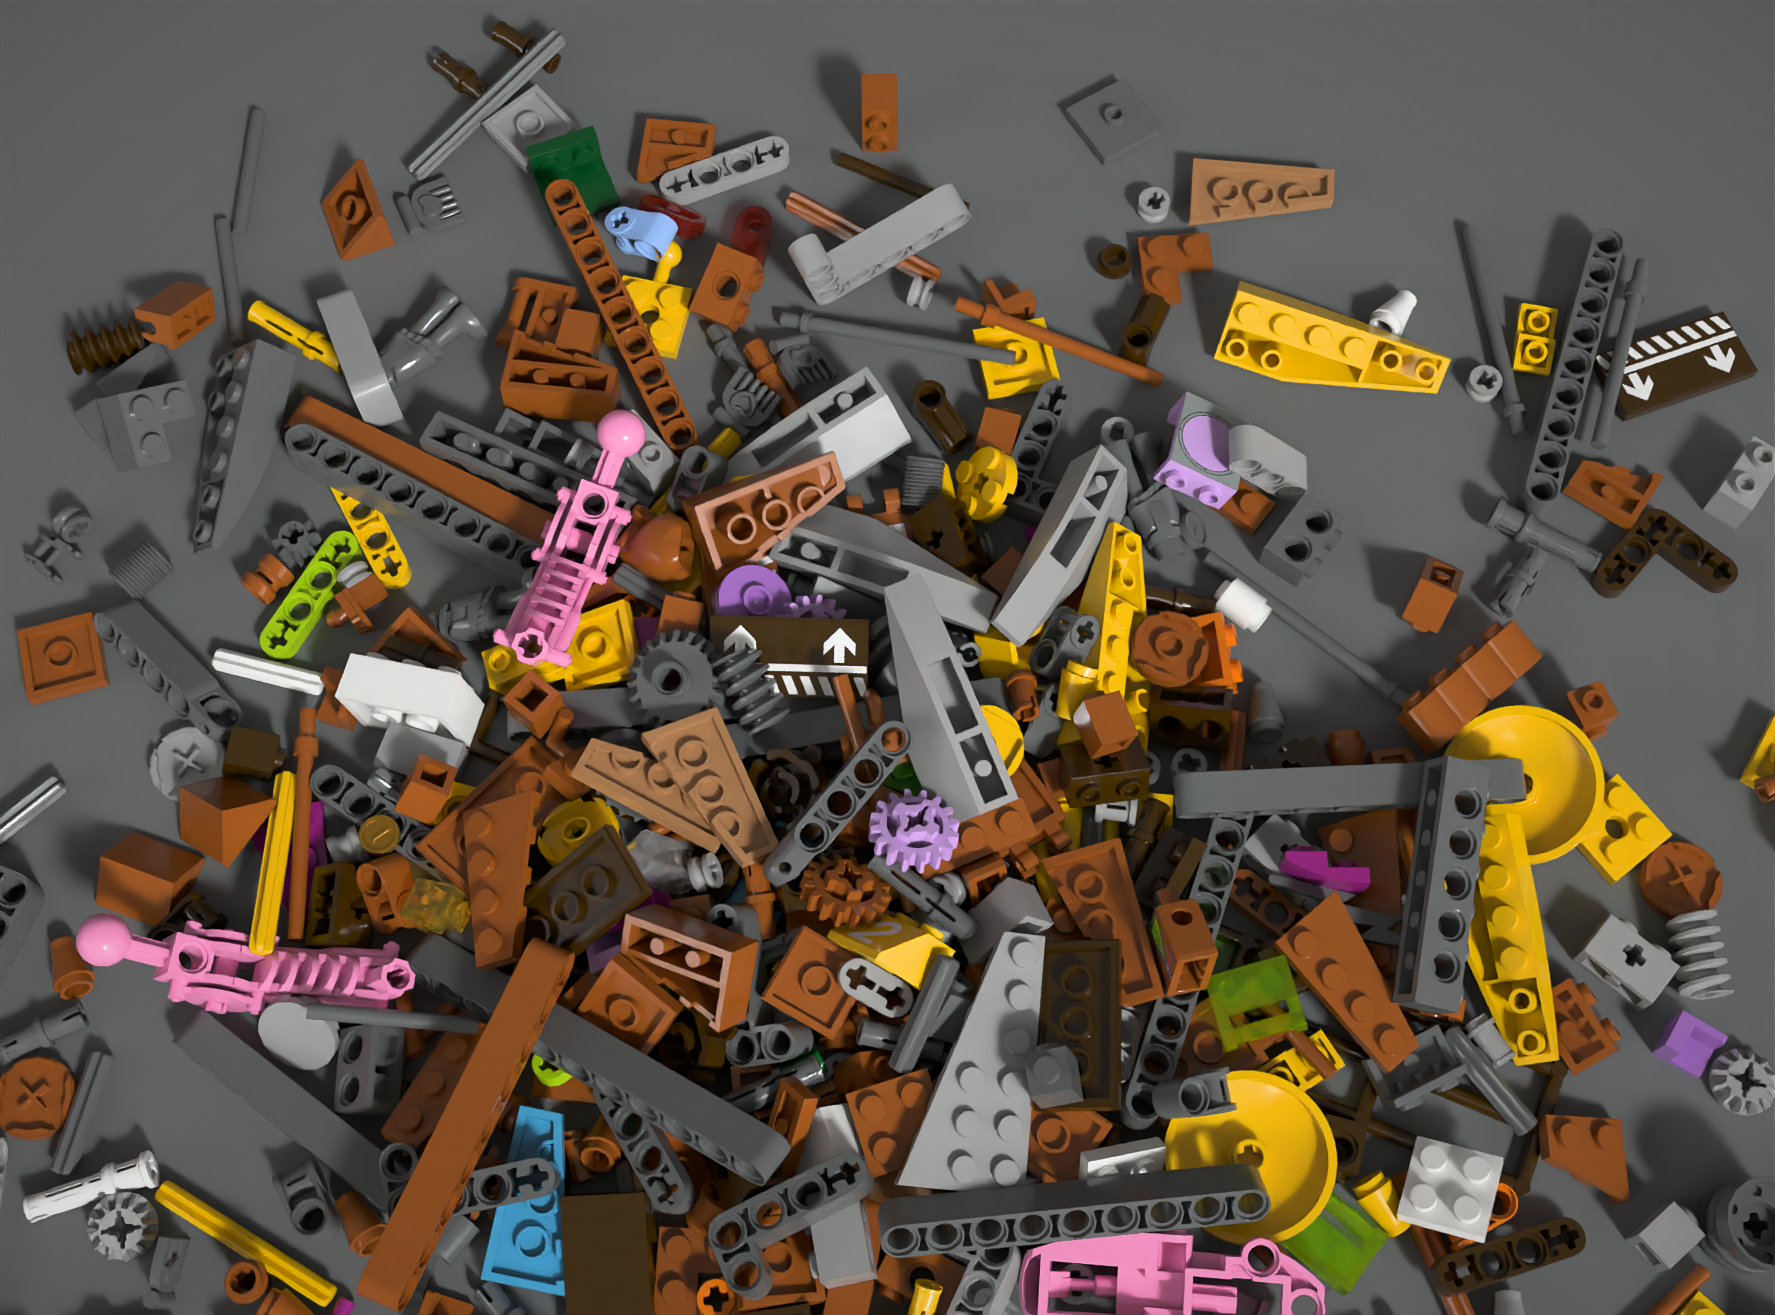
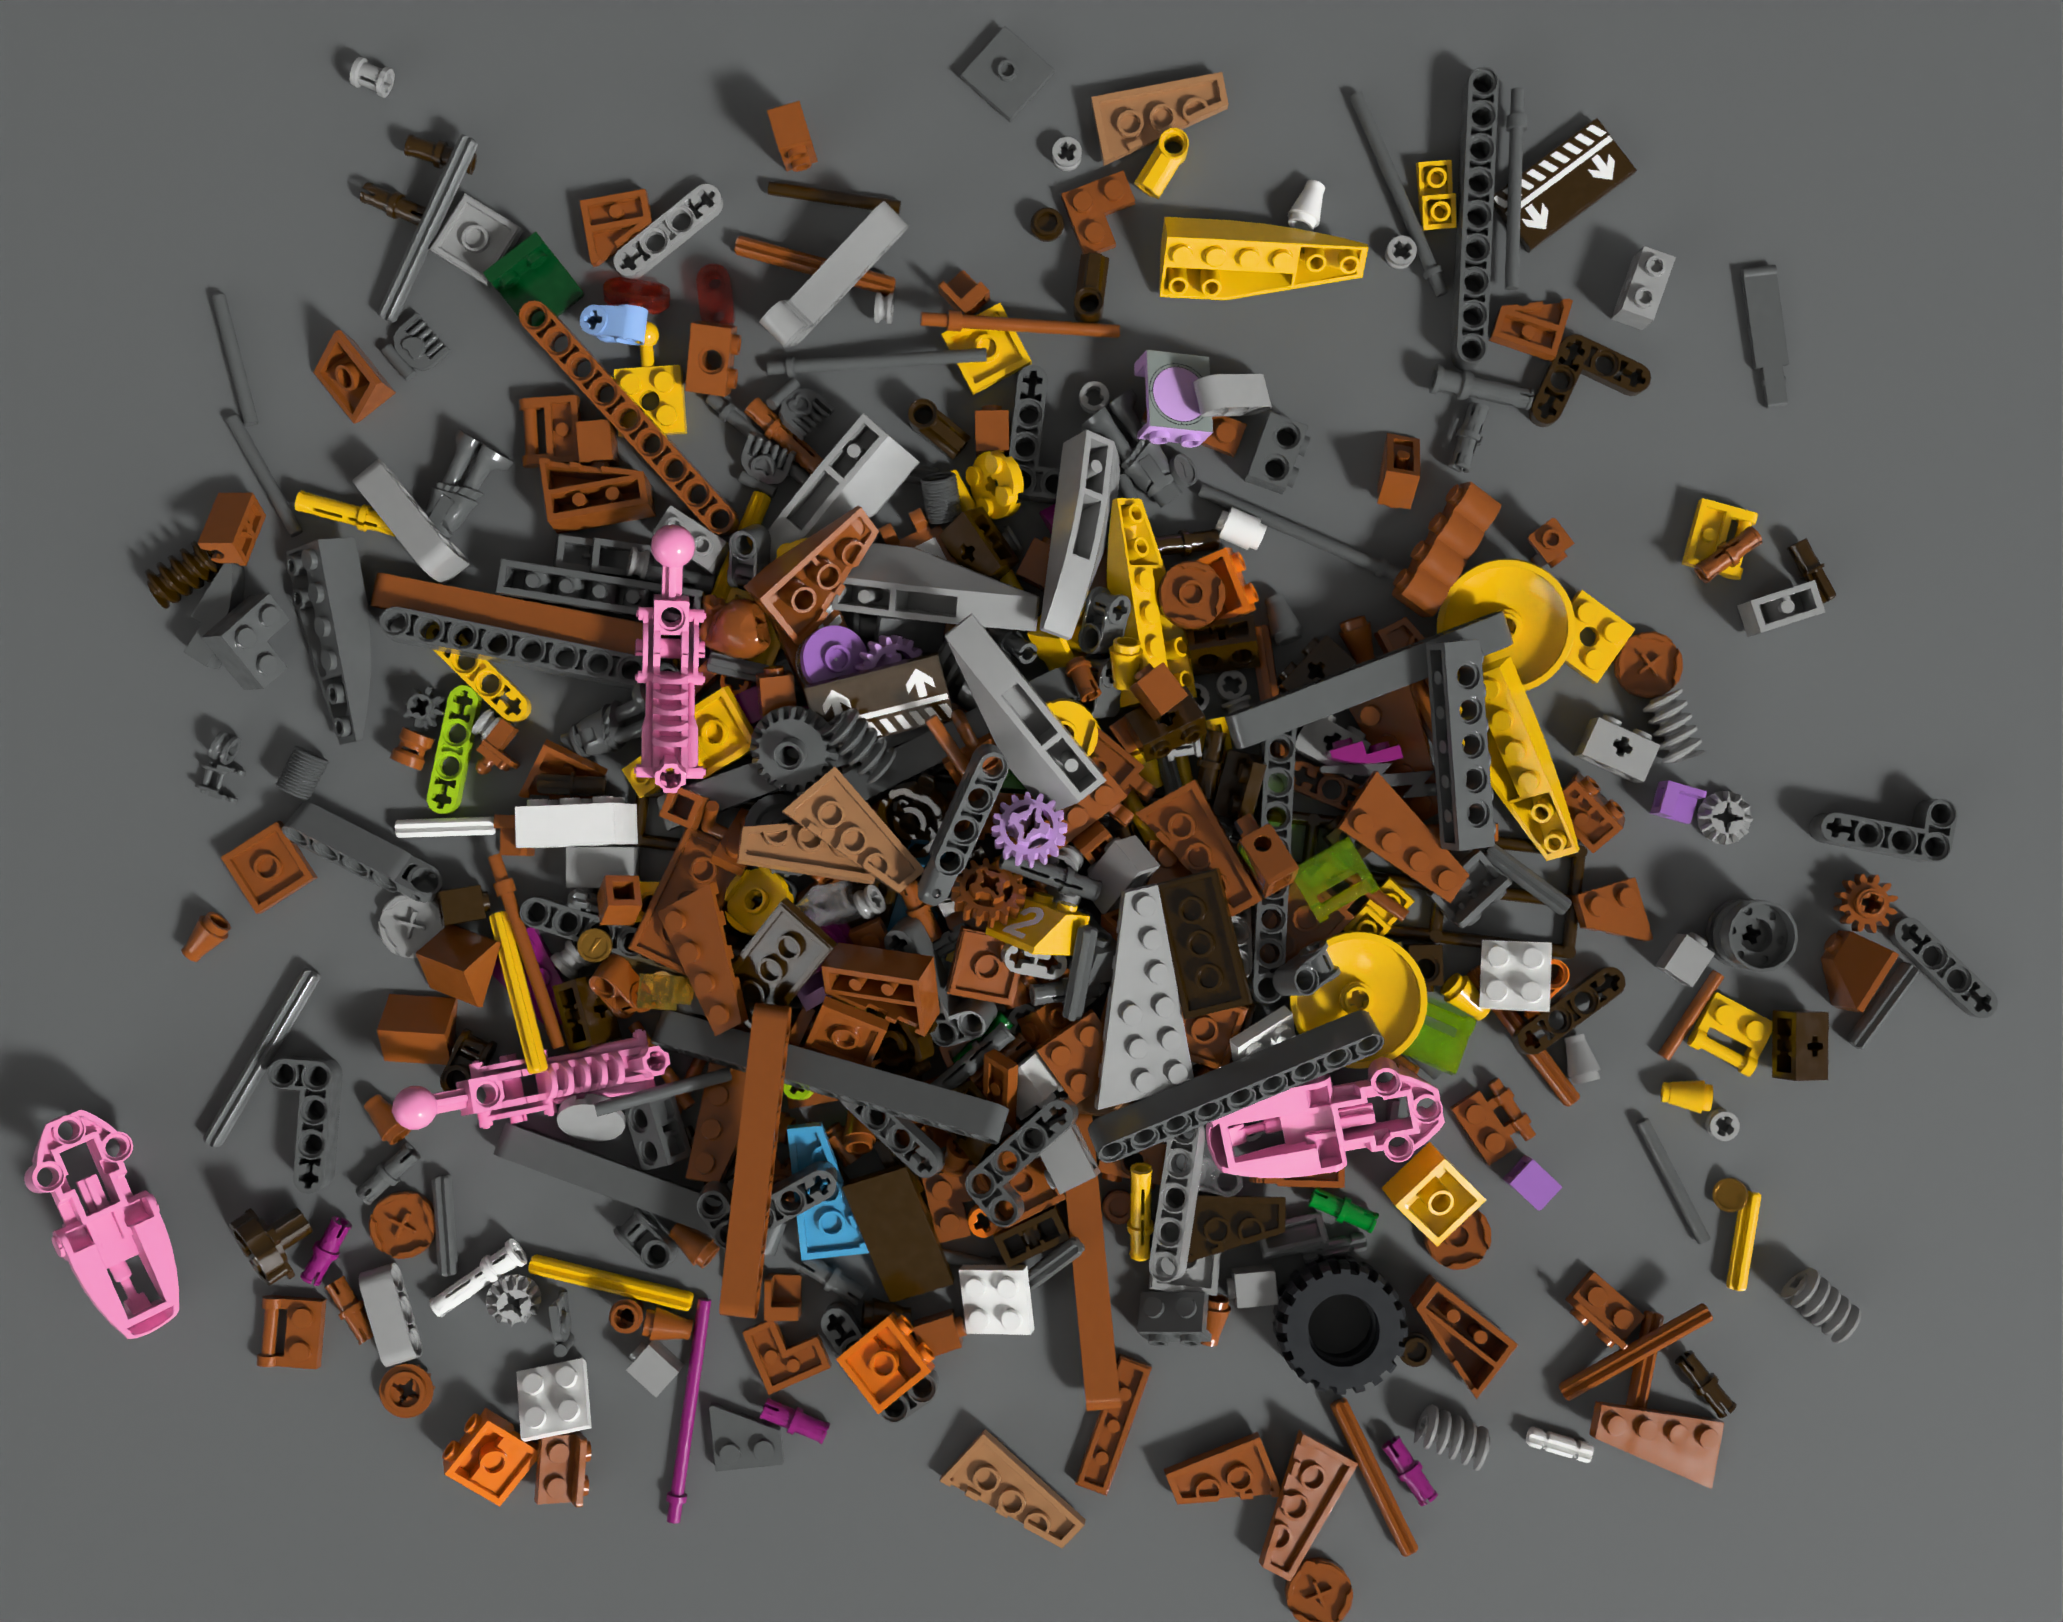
camera: 15 degrees left, 20 degrees up
(1053, 1076) = (1194, 996): dark grey brick -> none
(1251, 235) = (1162, 164): none -> yellow piece
(1489, 1040) = (1522, 848): light grey pin -> none

